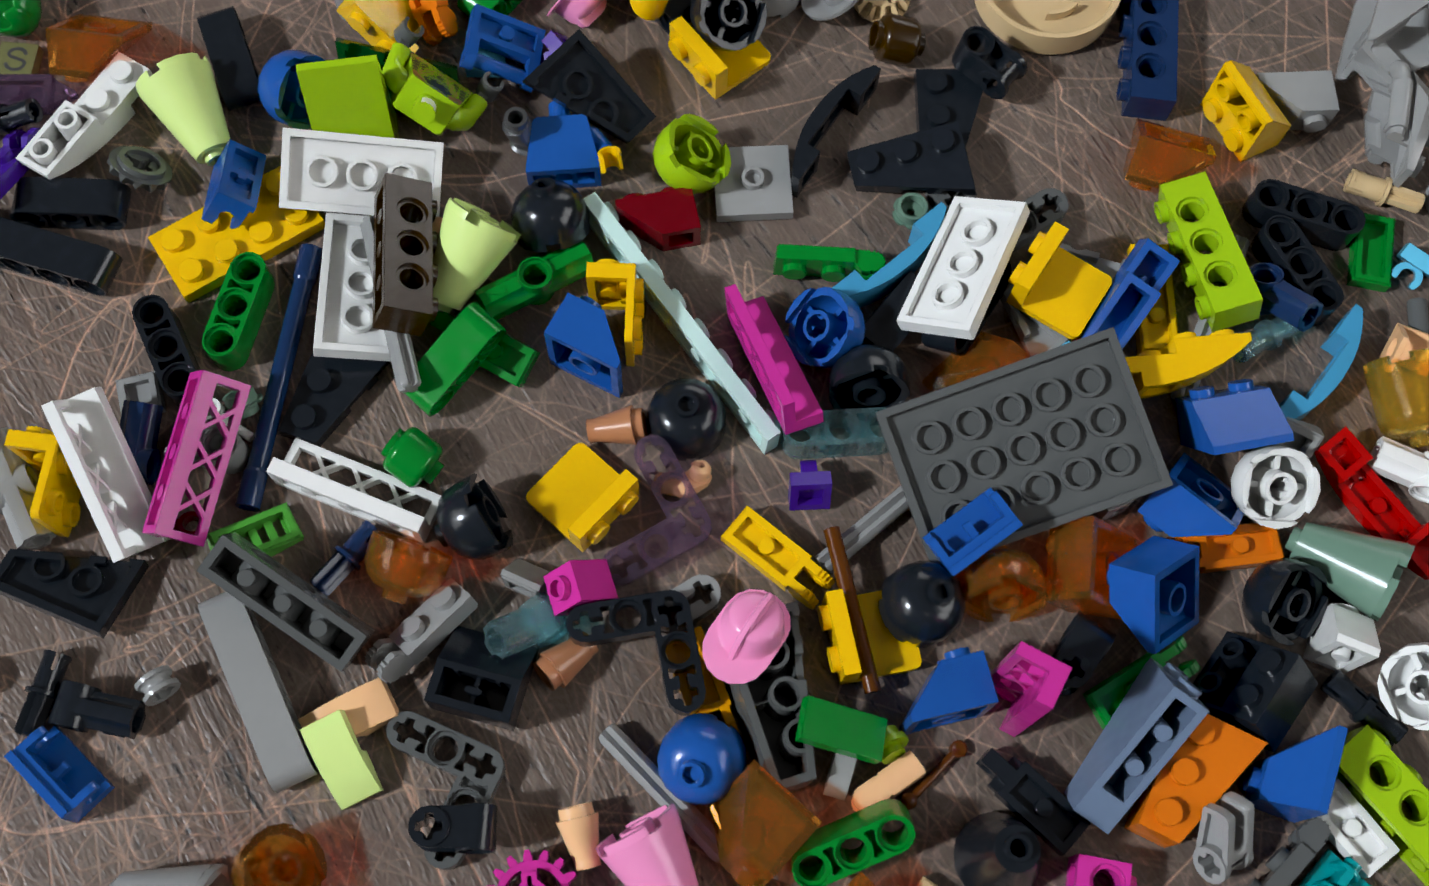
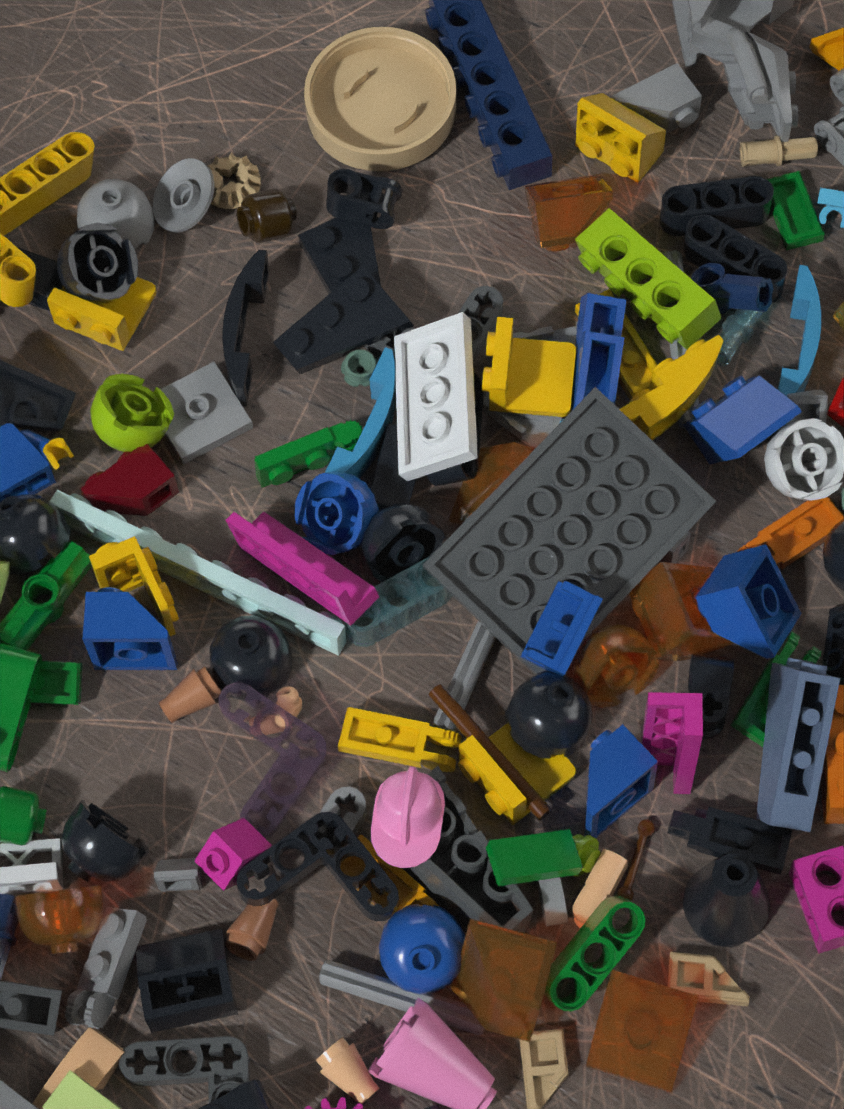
camera: 20 degrees left, 5 degrees down
(525, 627) = (202, 913): clear light blue piece -> none
(583, 496) = (192, 773): yellow bracket -> none
(809, 488) = (396, 664): dark purple tile -> none
(1193, 505) = (742, 511): blue slope -> none

